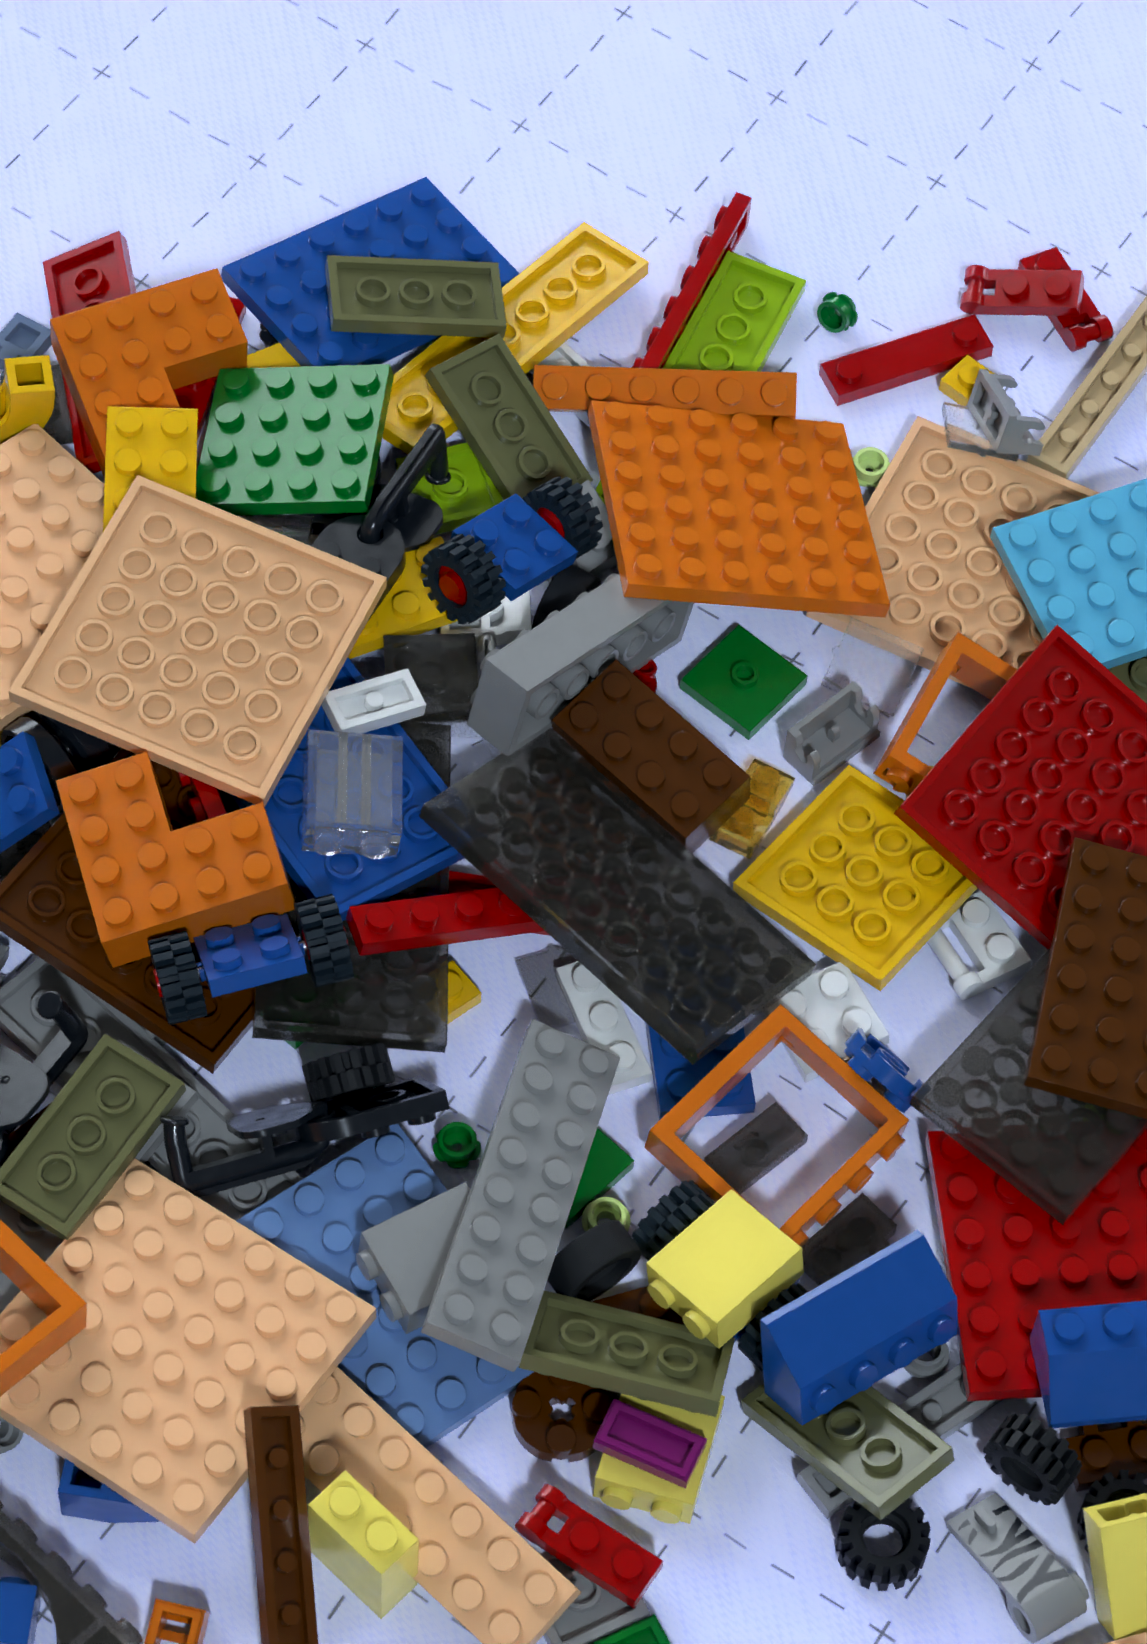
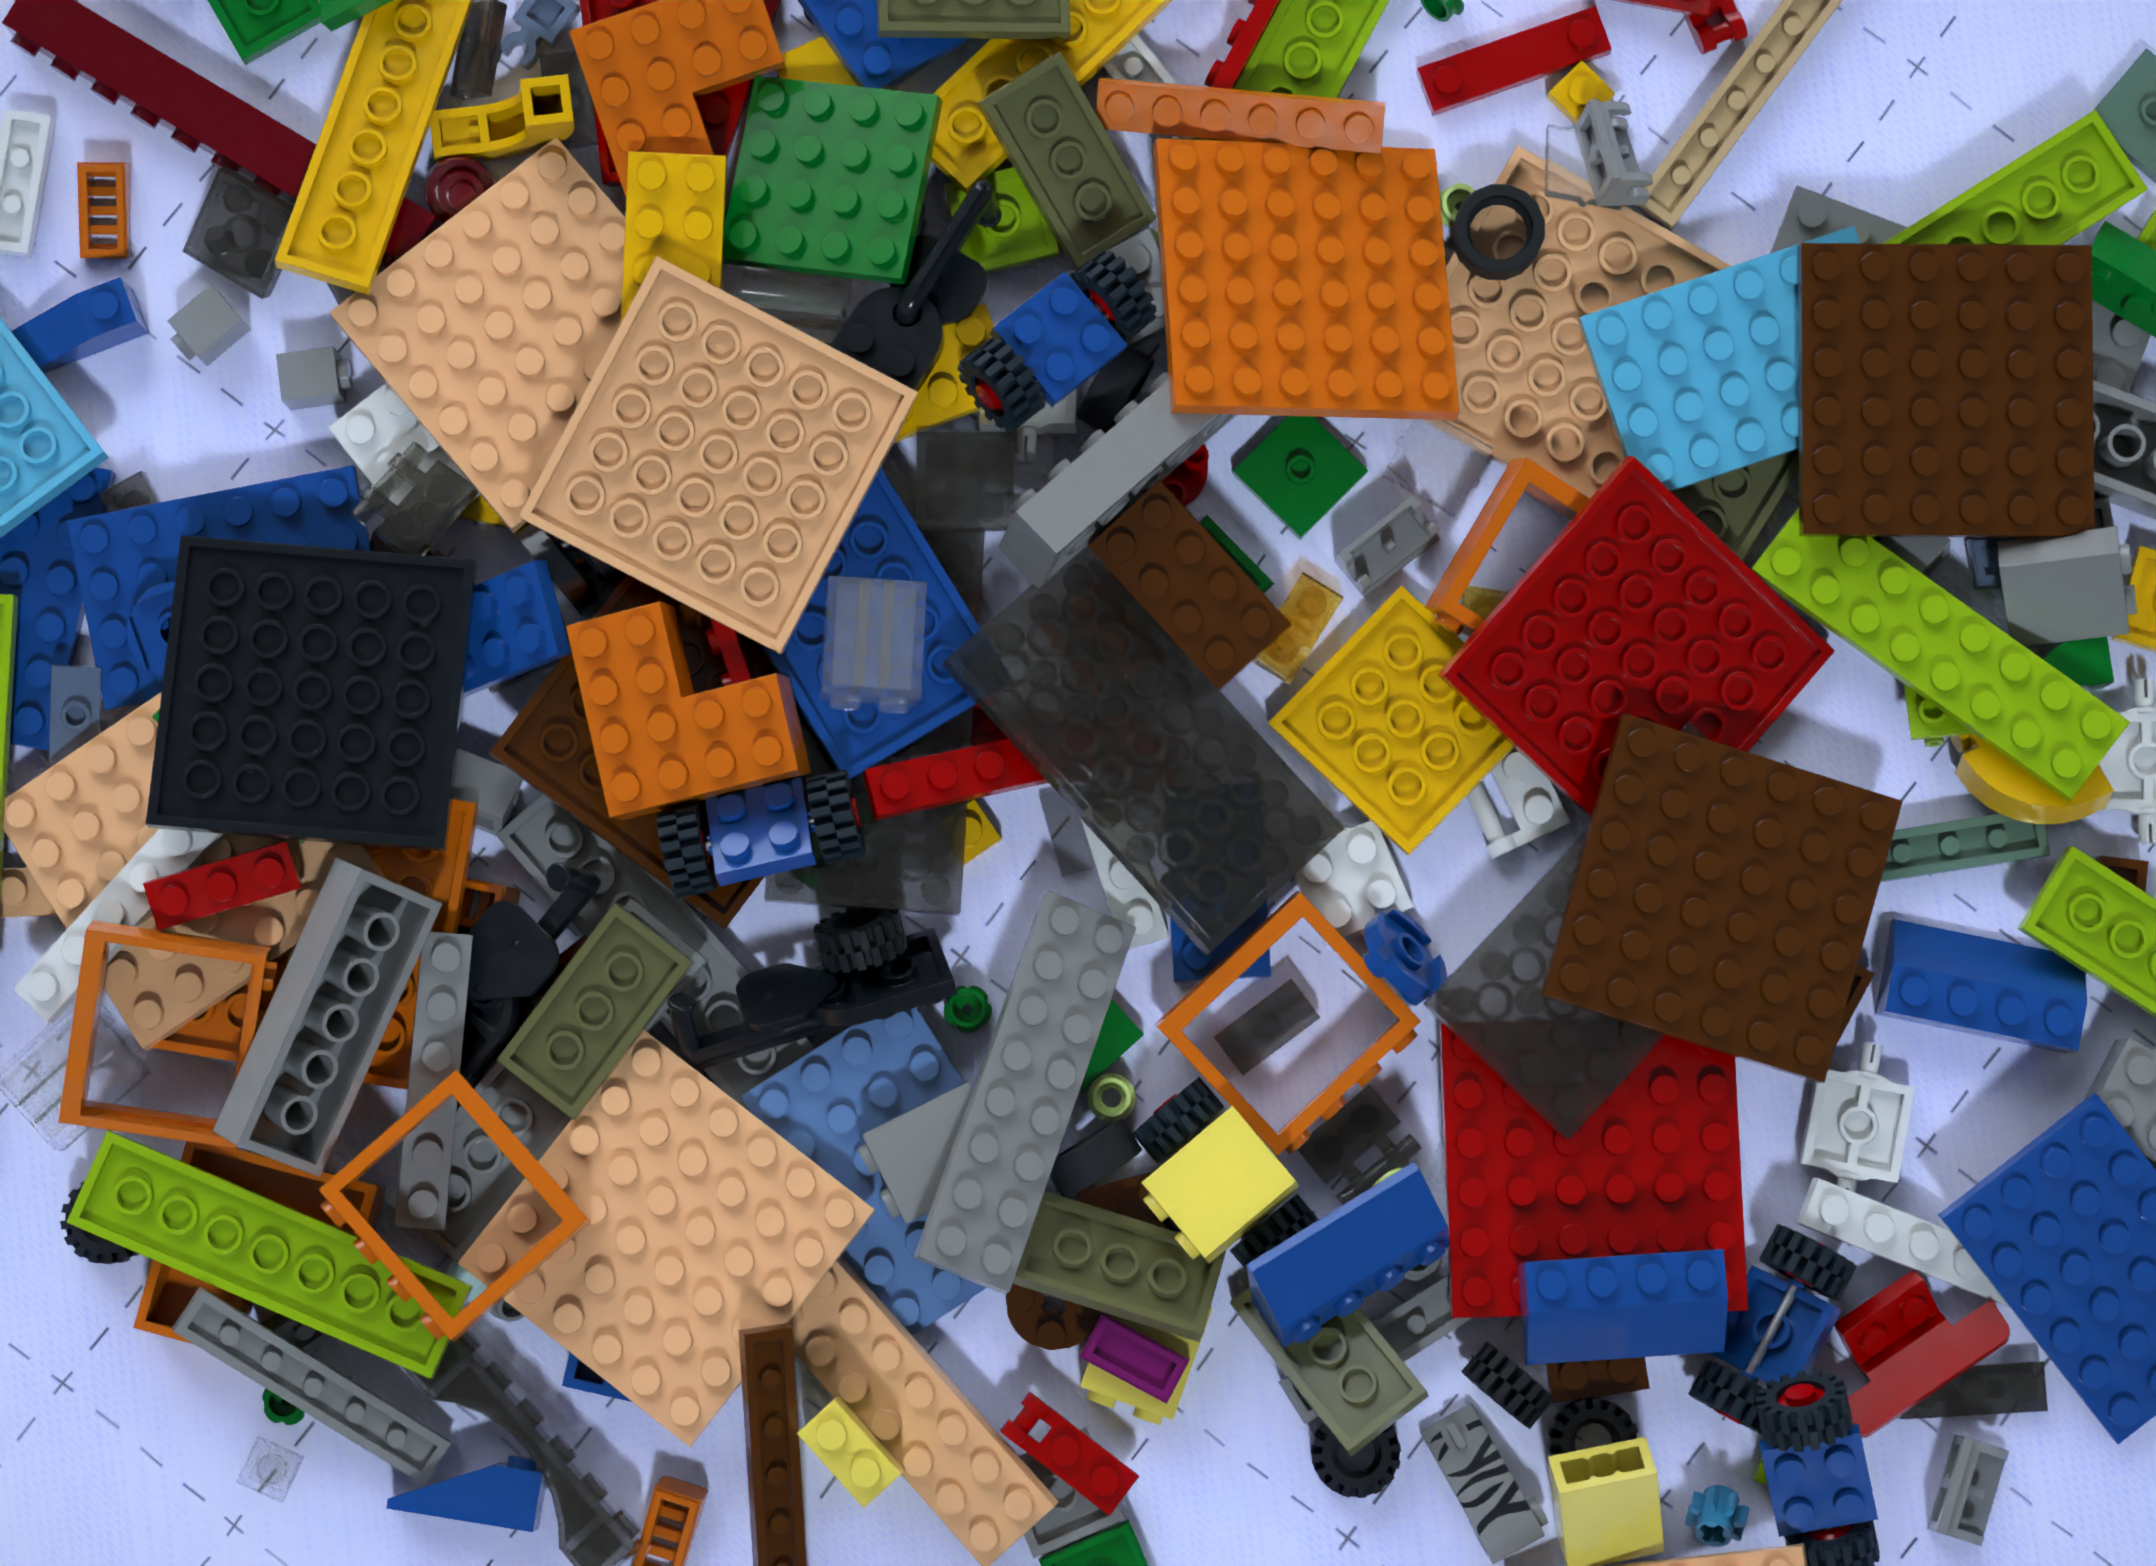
camera: 10 degrees right, 25 degrees up
(374, 703) = (900, 529): white plate -> none
(903, 502) = (1498, 195): none -> black tyre

